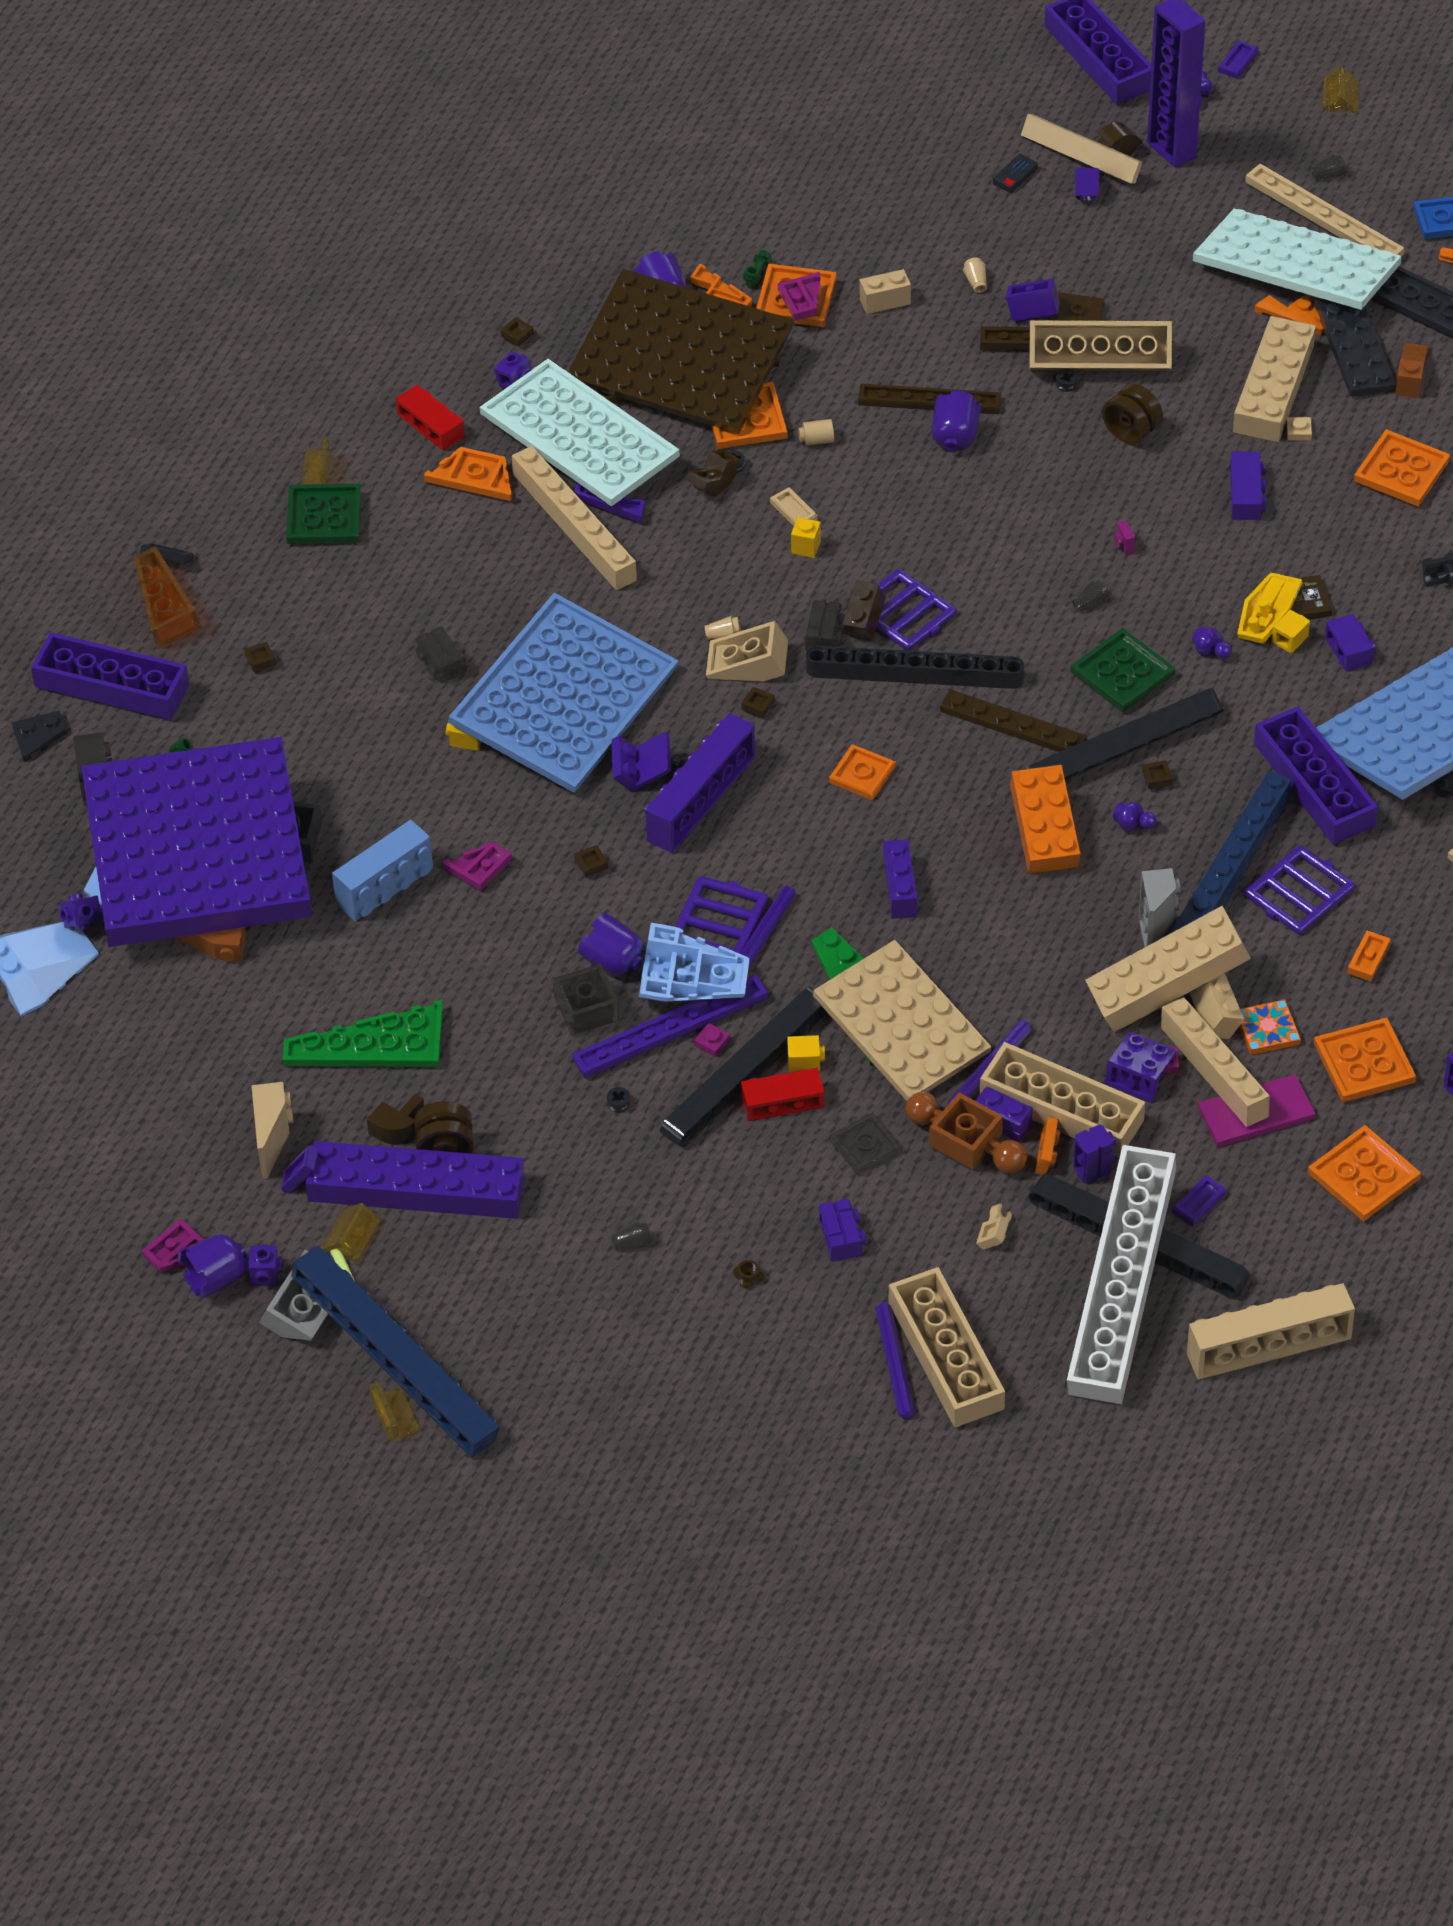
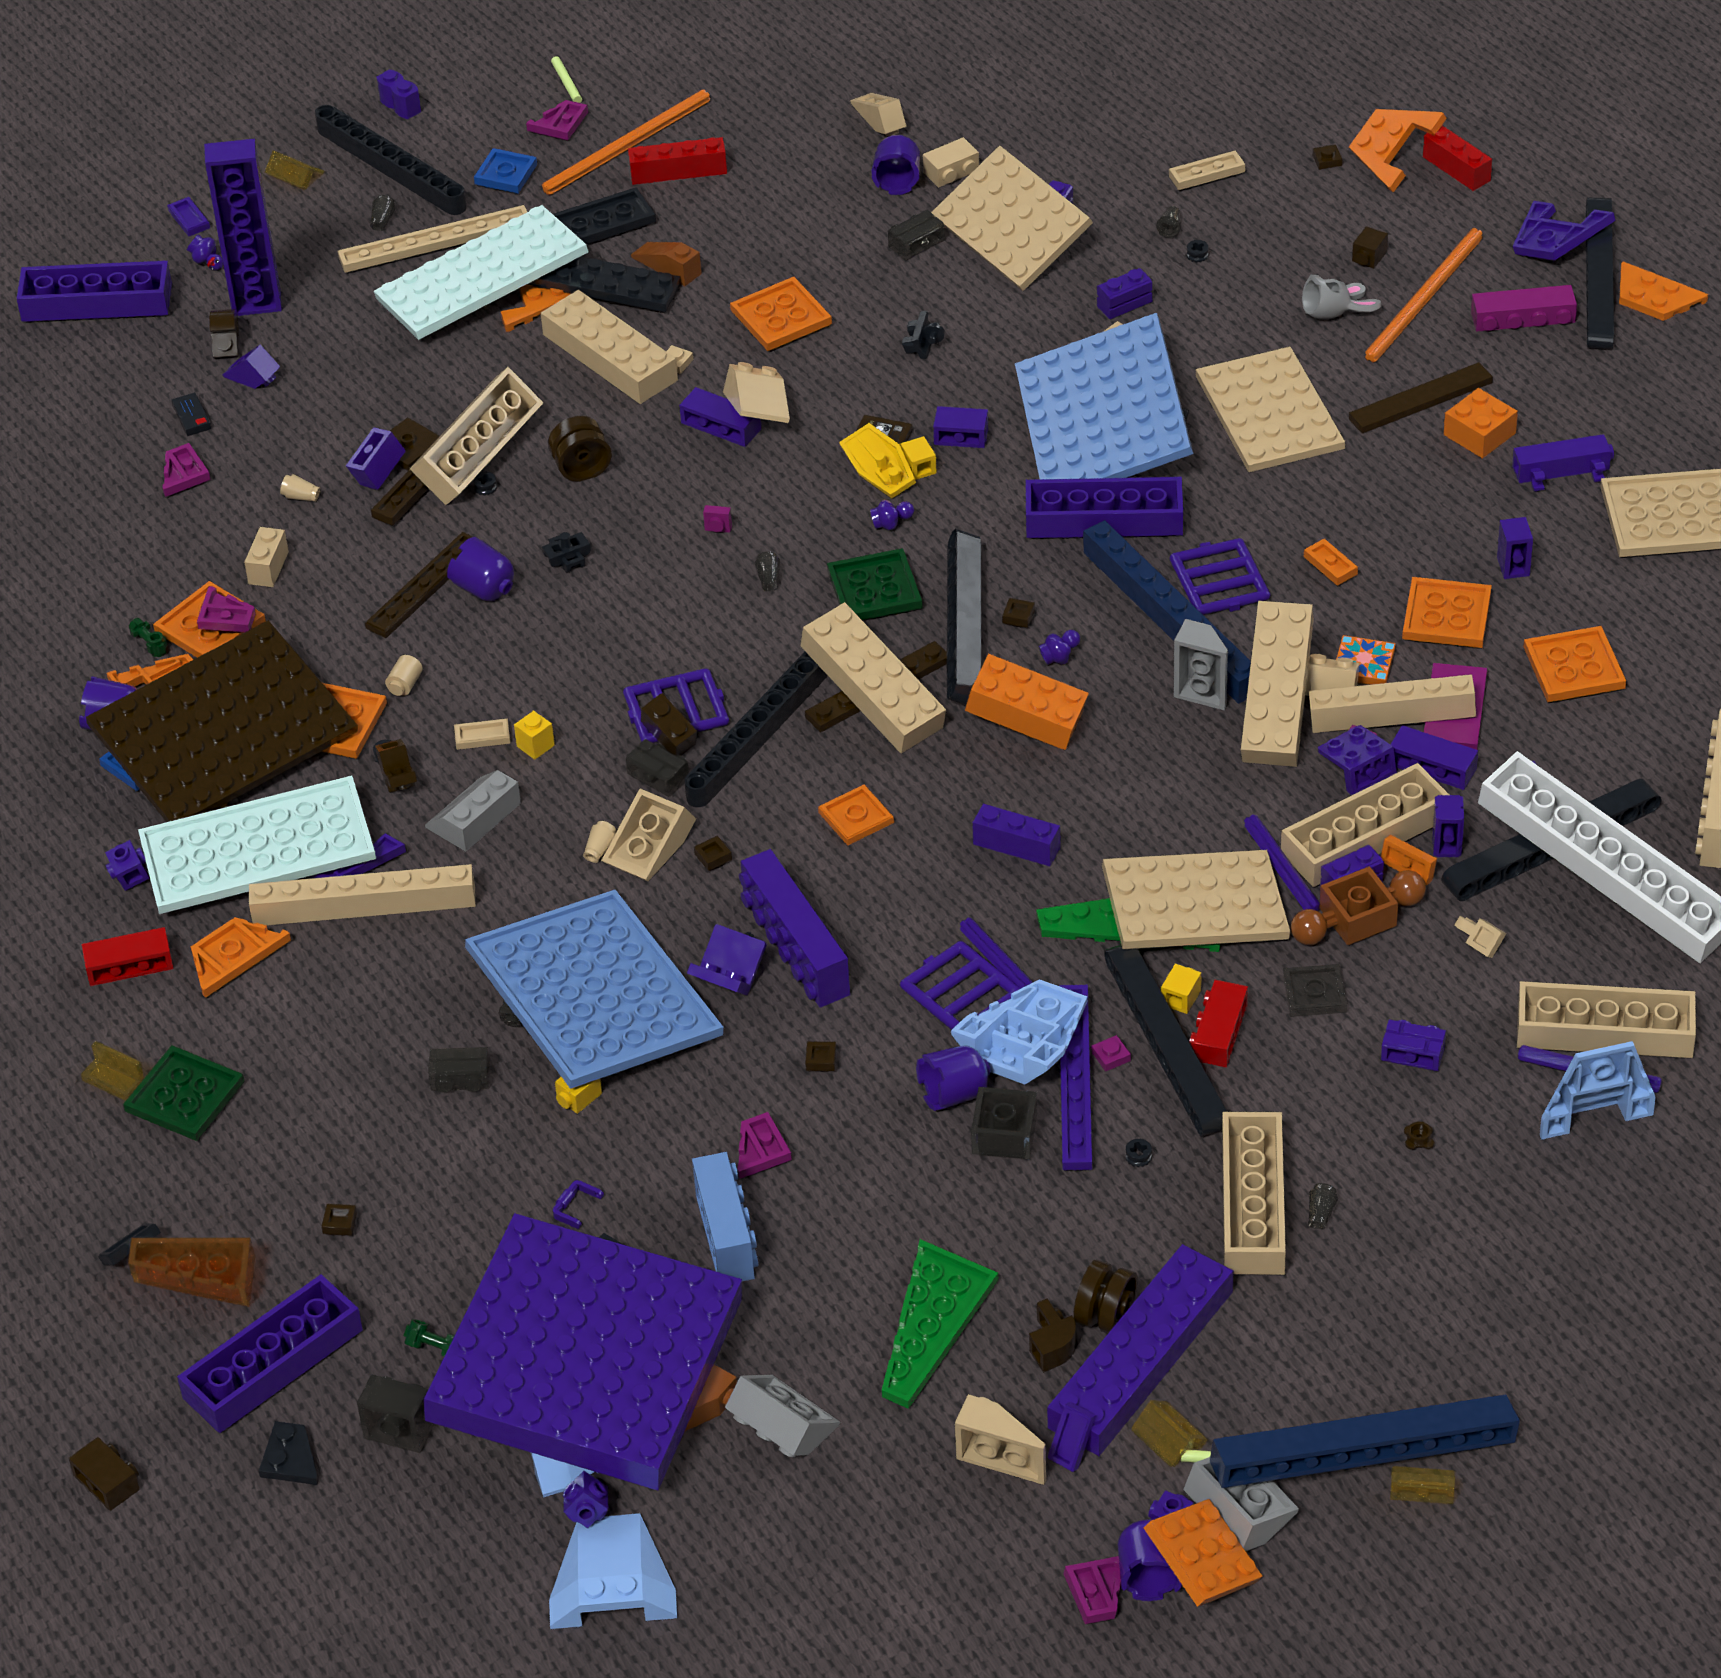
camera: 60 degrees left, 5 degrees down
(229, 1291) = (1203, 1552): none -> orange plate
(230, 990) = (780, 1414): none -> light grey slope
(360, 776) = (567, 1196): none -> dark purple piece
(517, 331) = (68, 845): dark brown plate -> none
(611, 1185) = (1253, 1193): none -> tan brick
(706, 543) = (476, 810): none -> light grey slope
(832, 1344) = (1596, 1081): none -> light blue wedge
(948, 198) = (183, 470): none -> magenta wing
(1000, 709) = (873, 677): none -> tan brick
(1022, 459) = (570, 547): none -> black piece
(1081, 148) = (209, 353): tan tile -> none
(1179, 1116) = (1439, 757): none -> dark purple brick
(1274, 492) = (757, 392): none -> tan slope
(1395, 142) = (390, 160): none -> black beam

